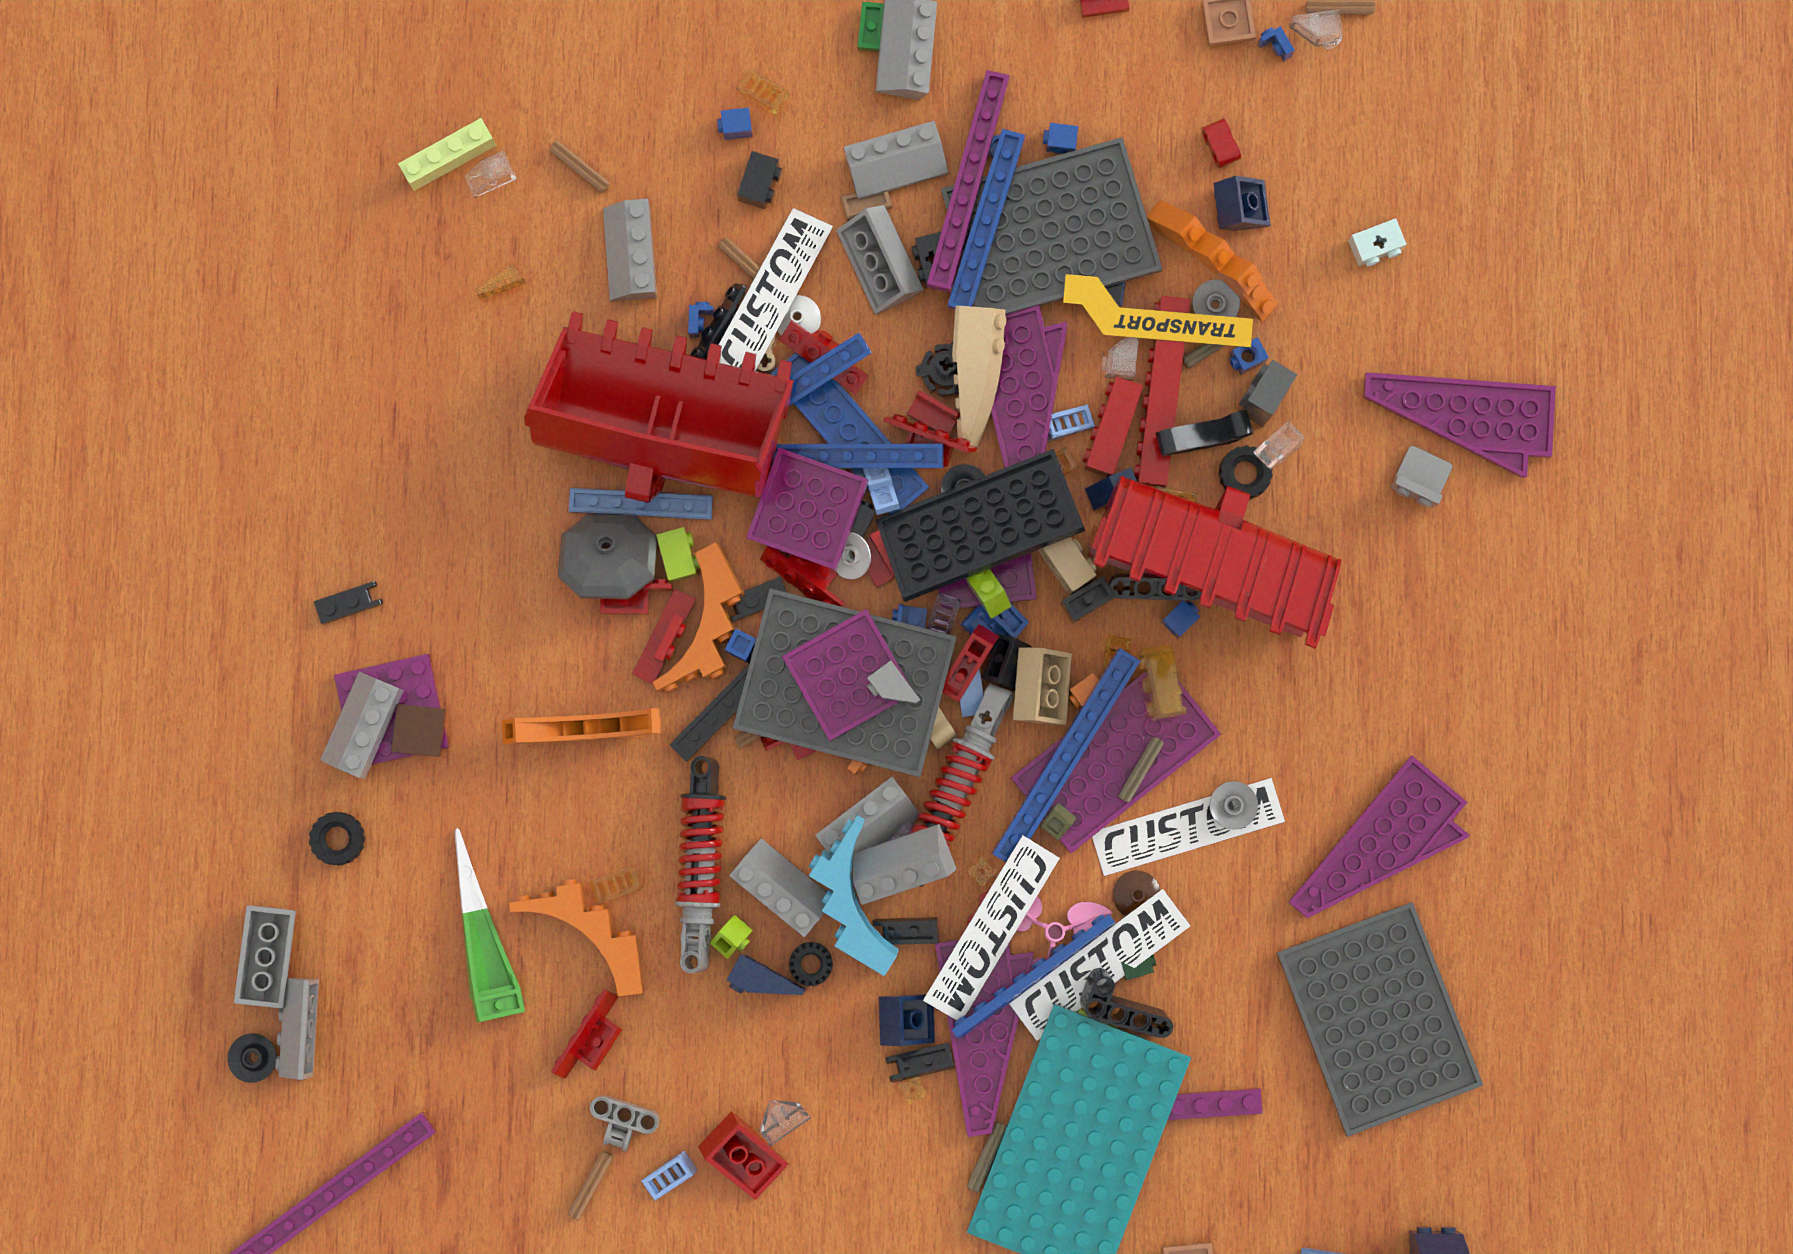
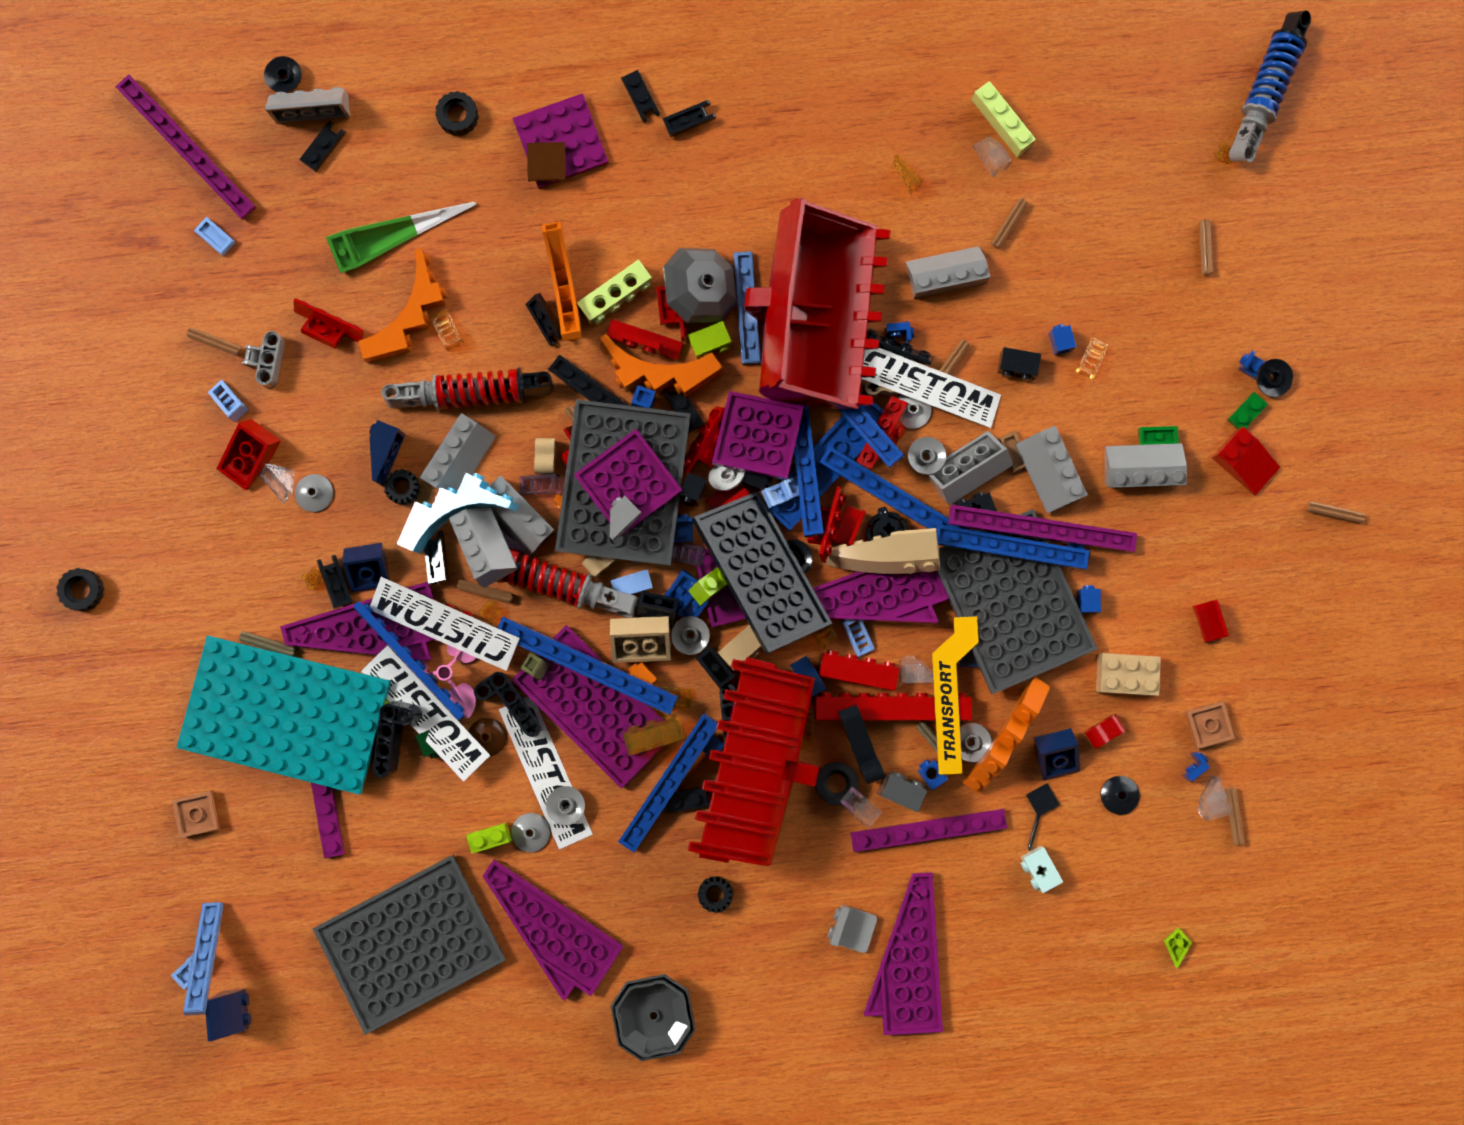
camera: 85 degrees right, 0 degrees up
(265, 956) = (359, 70): light grey slope -> none
(355, 1019) = (321, 147): none -> black hinge
(361, 725) = (544, 118): light grey slope -> none
(388, 546) = (688, 119): none -> black hinge
(452, 1170) = (214, 236): none -> light blue tile
(577, 634) = (603, 293): none -> yellowish green brick
(621, 758) = (544, 318): none -> black hinge
(731, 937) = (414, 422): lime brick -> none
(795, 778) = (545, 455): none -> tan axle
(806, 1065) = (322, 496): none -> light grey dish
(832, 769) = (556, 484): none -> slope
(858, 296) = (928, 446): none -> light grey dish
(863, 597) = (693, 490): none -> black brick
(895, 366) = (882, 489): none -> blue plate
(954, 878) = (486, 592): none -> medium nougat axle
(969, 662) = (652, 578): red slope -> none
(1054, 623) = (683, 642): none -> light grey dish
(1103, 856) = (512, 706): none -> black beam
(1140, 769) = (584, 727): dark tan axle -> none
(1157, 105) = (1128, 674): none -> tan brick
(1221, 673) = (669, 782): none -> blue plate
(1243, 654) = (688, 800): none -> black hinge
(1249, 860) = (540, 830): none -> light grey dish
(1261, 904) = (489, 837): none -> lime brick
(1291, 145) = (1110, 795): none -> black dish
(1296, 230) = (1042, 801): none -> black piece
(1314, 370) = (928, 830): none -> magenta plate
(1351, 646) = (712, 906): none -> black tyre
(1485, 97) = (1177, 946): none -> lime piece
(1524, 727) = (651, 1037): none -> dark grey rock

